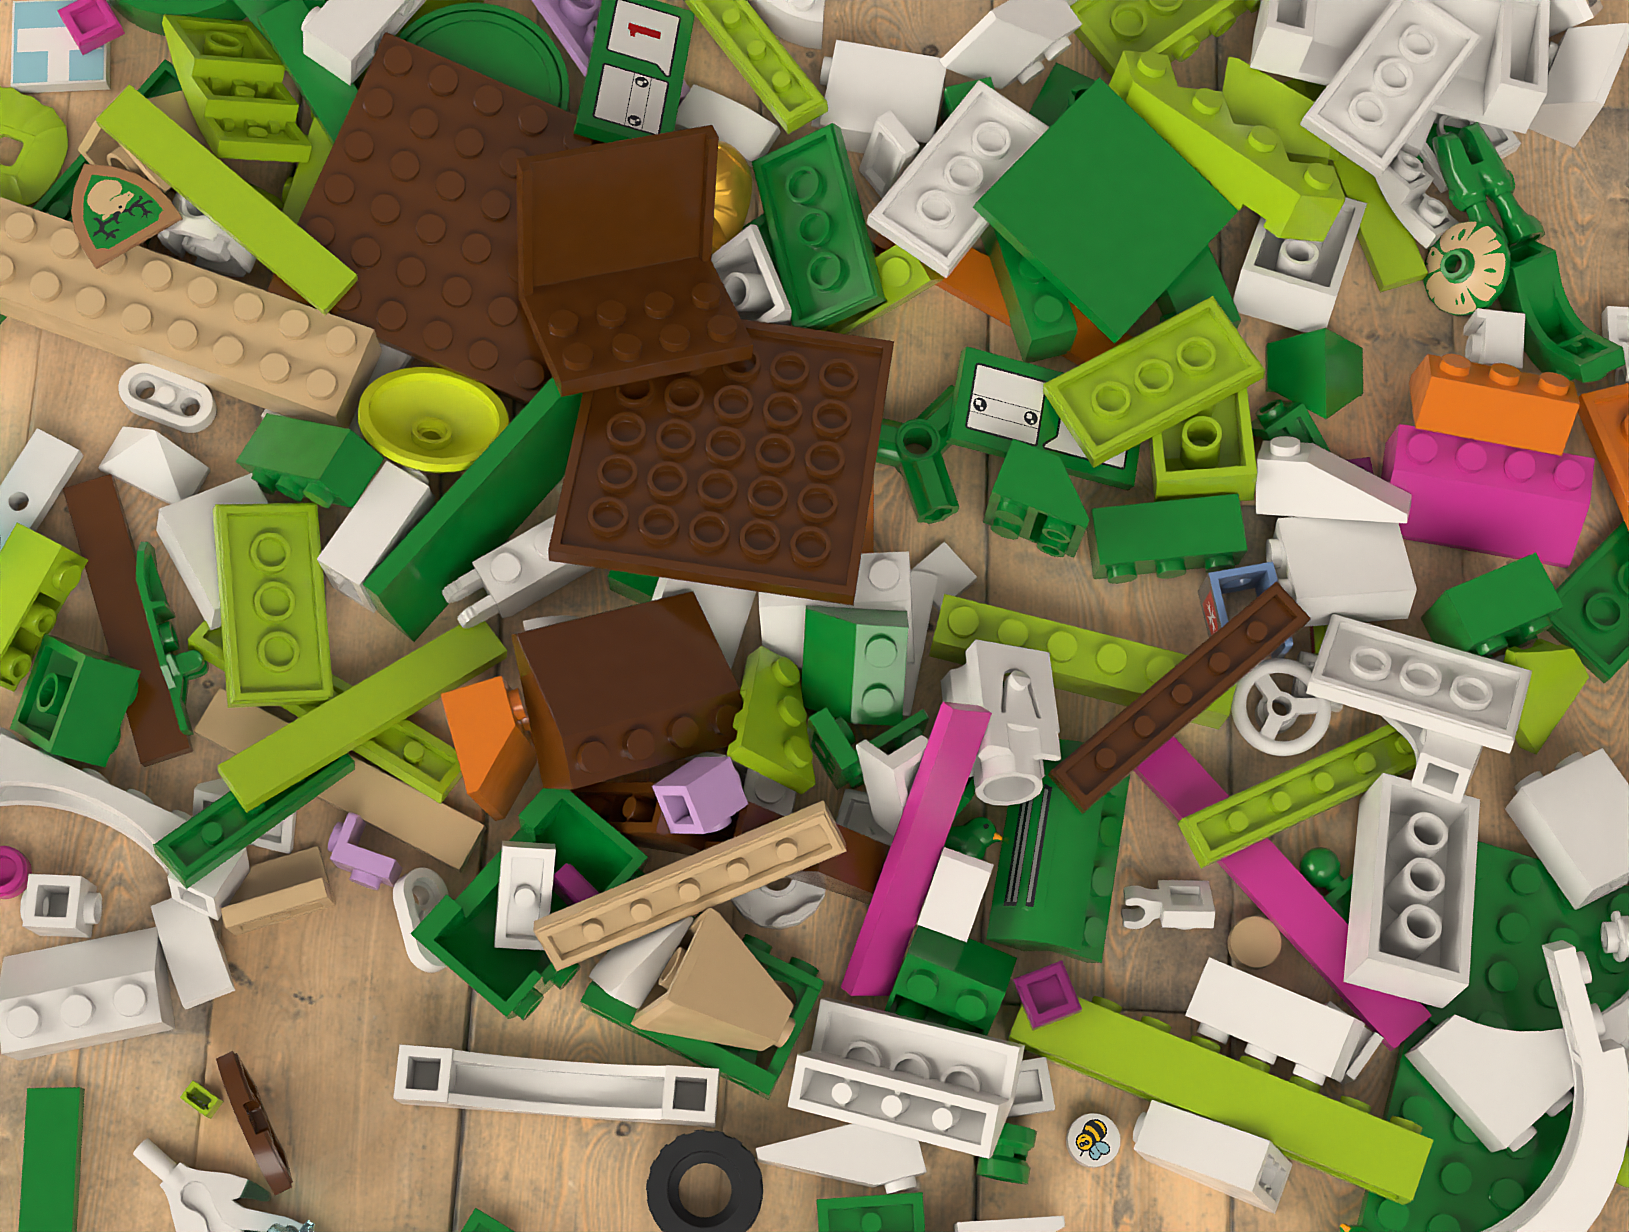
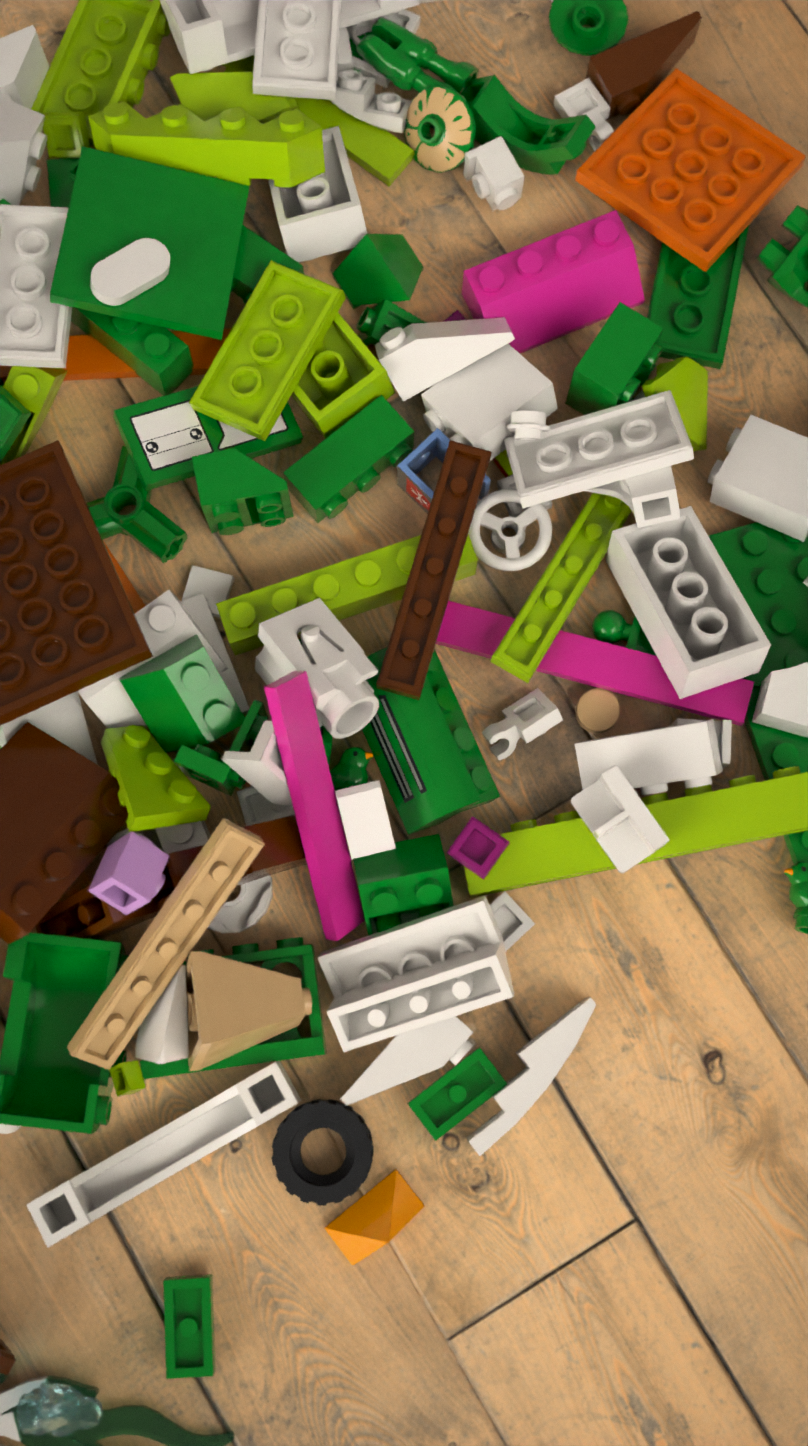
camera: 30 degrees left, 5 degrees up
(523, 893) = (45, 1027): white plate -> none
(568, 991) = (127, 1078): none -> lime piece
(572, 885) = (80, 998): magenta tile -> none
(1009, 1156) = (525, 978): green wheel -> none
(1068, 226) = (130, 271): none -> white tile
(1091, 50) = (65, 134): none -> lime tile
(1093, 1140) = (575, 927): tile -> none
(1204, 1059) = (619, 820): none -> white panel
(1213, 1154) = (664, 882): white slope -> none
(1364, 615) = (528, 425): none -> white plate
(1493, 403) = (520, 213): orange slope -> none

